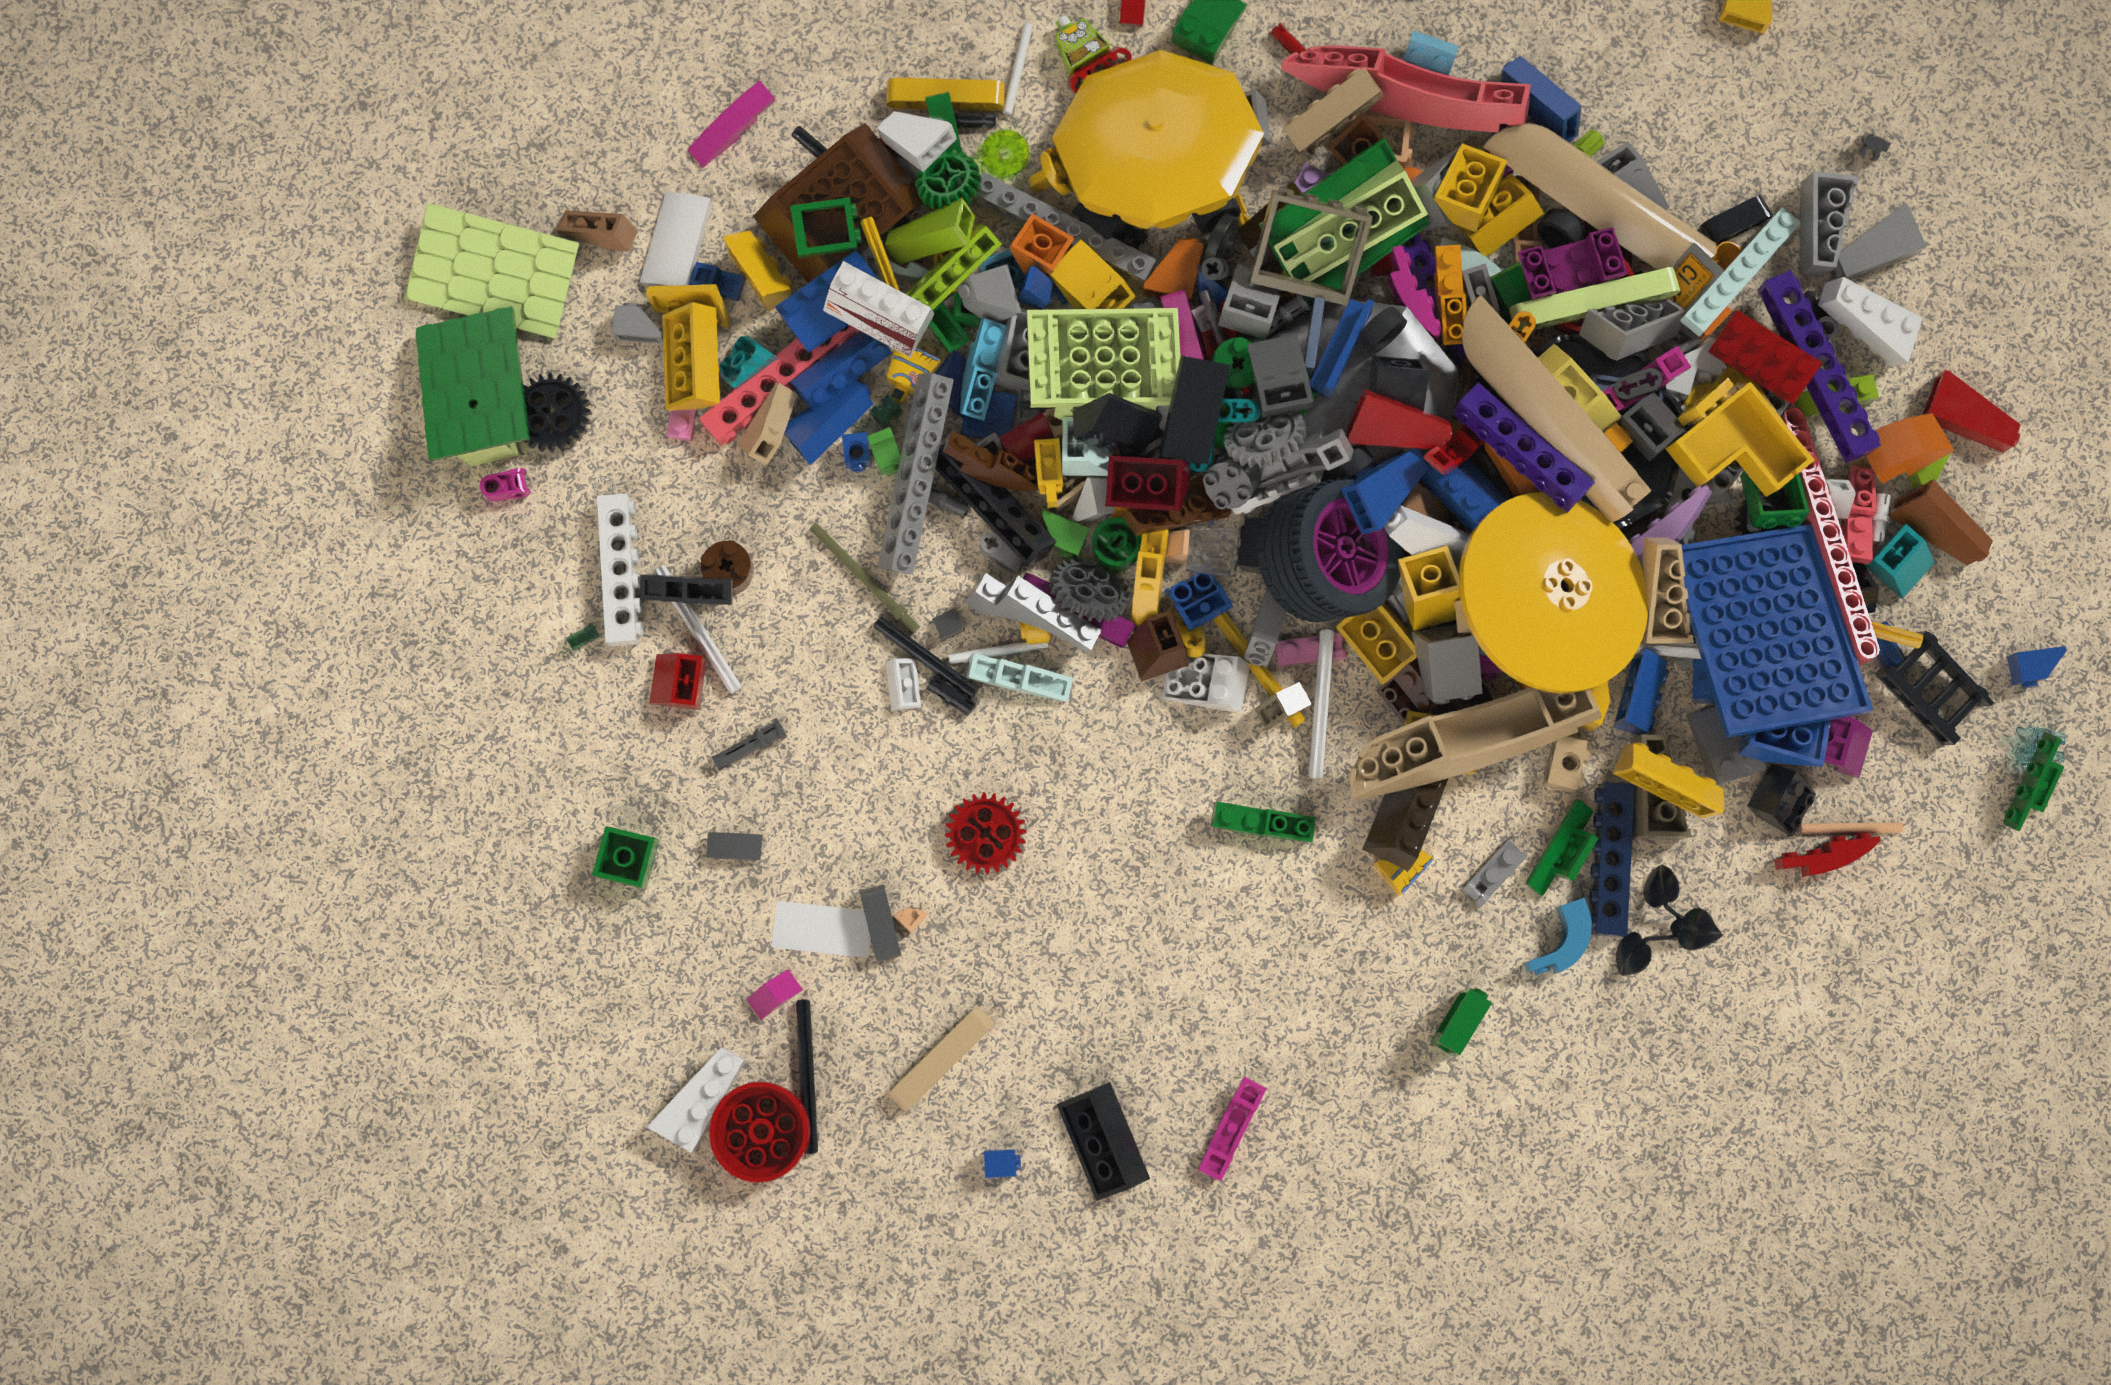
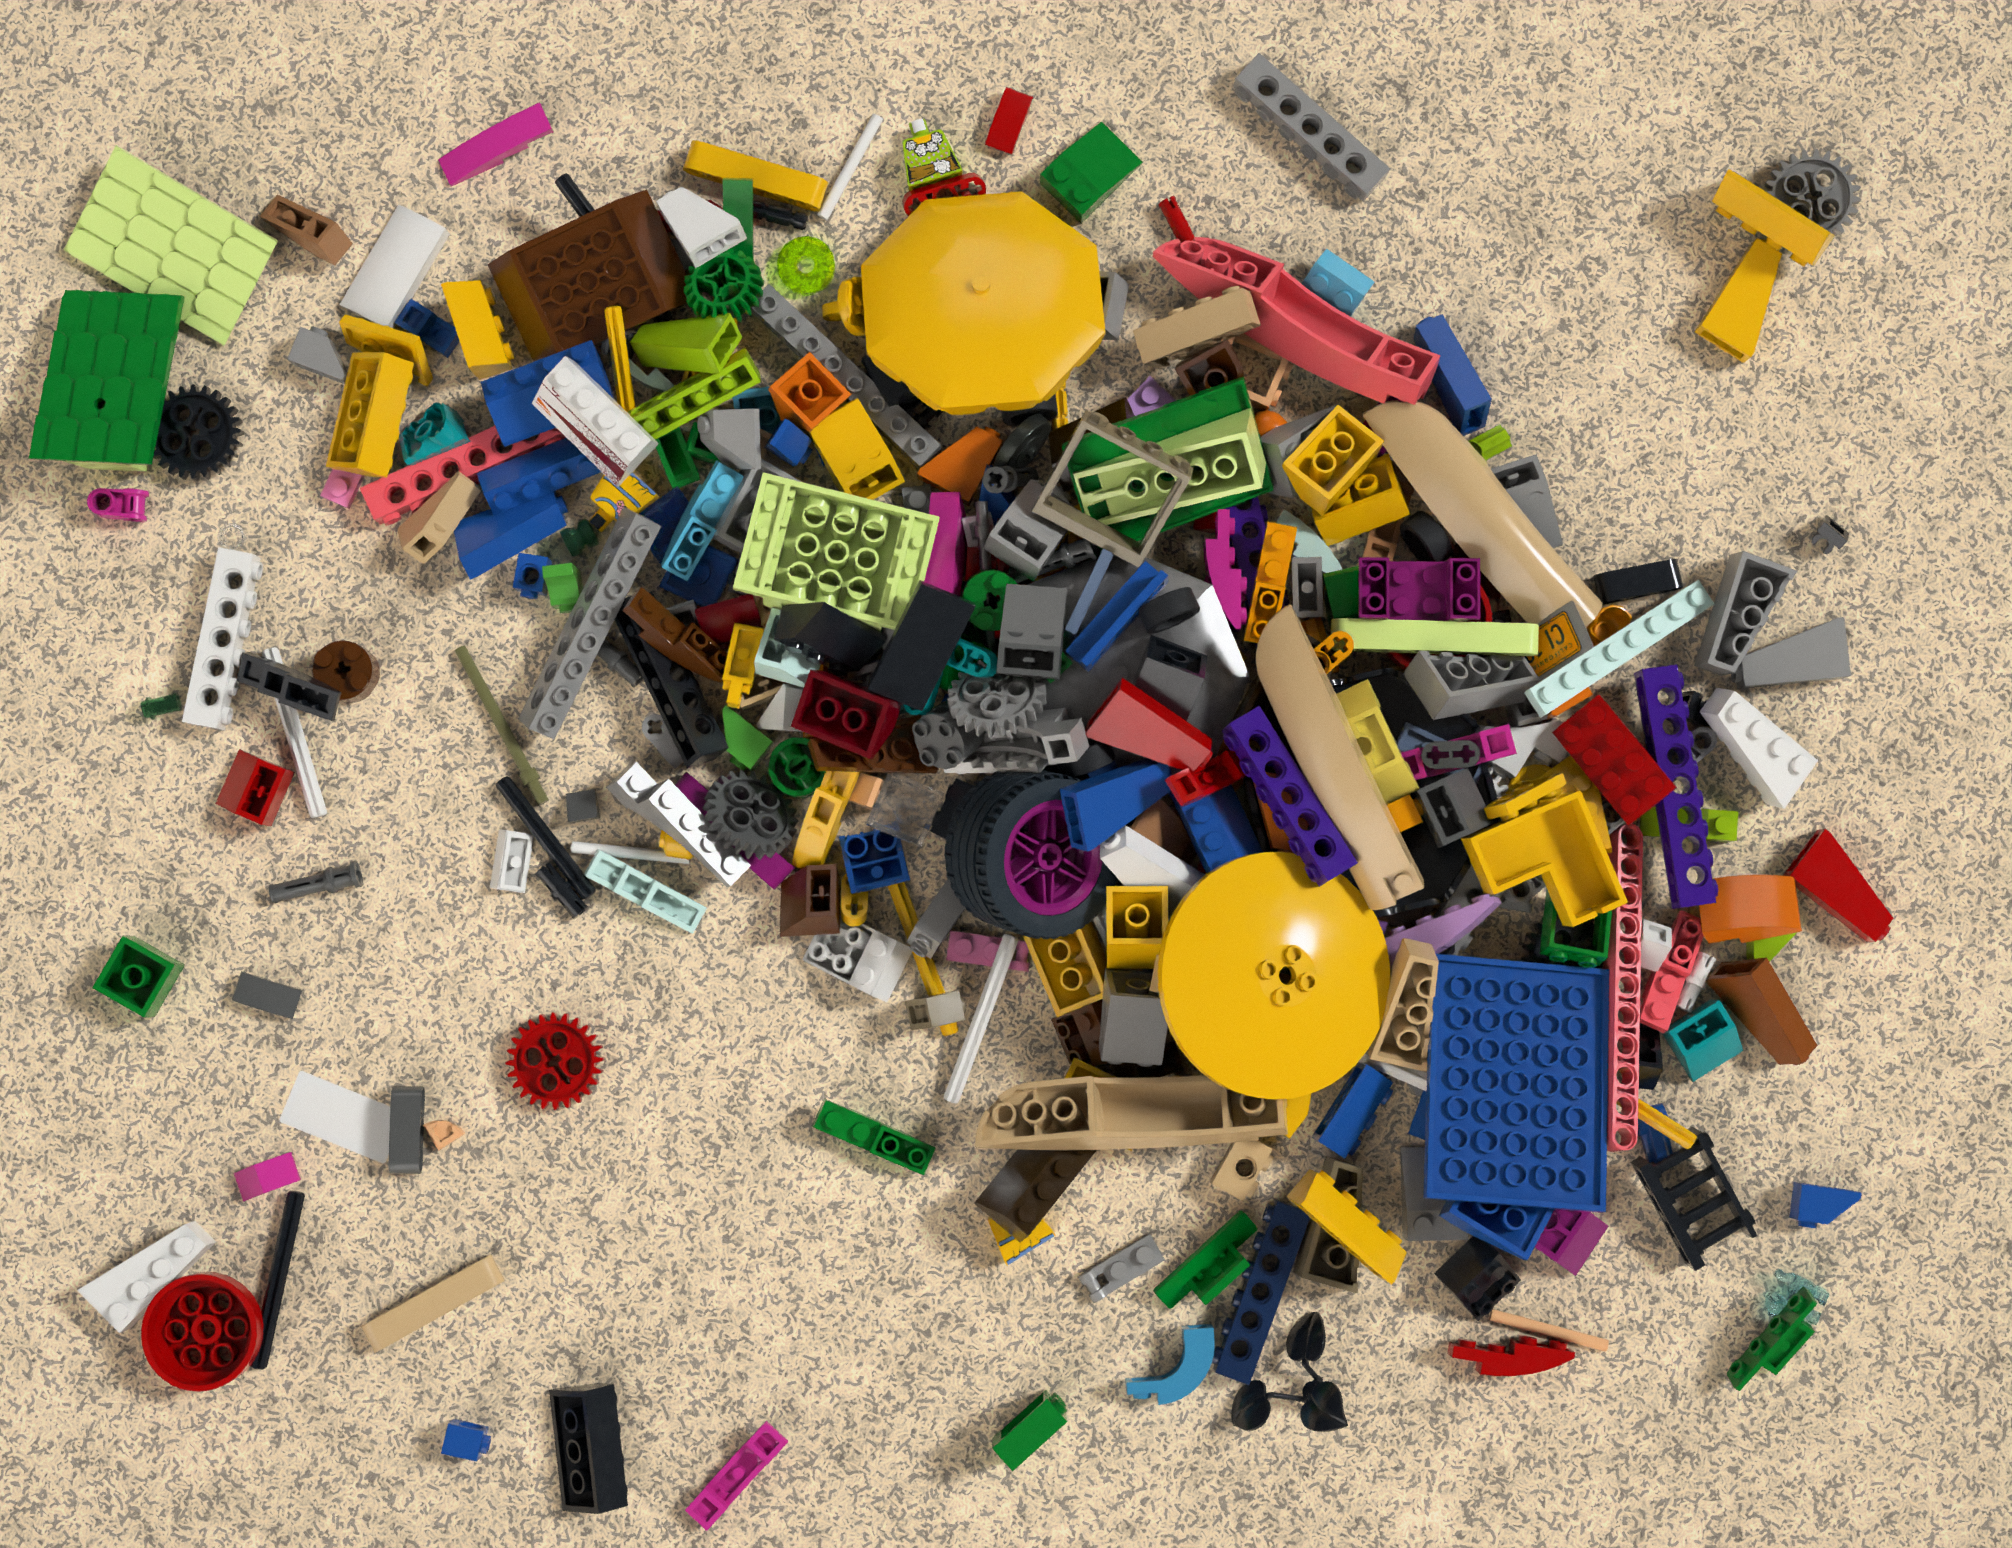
camera: 15 degrees right, 5 degrees up
(799, 231) = (531, 298): green window -> none

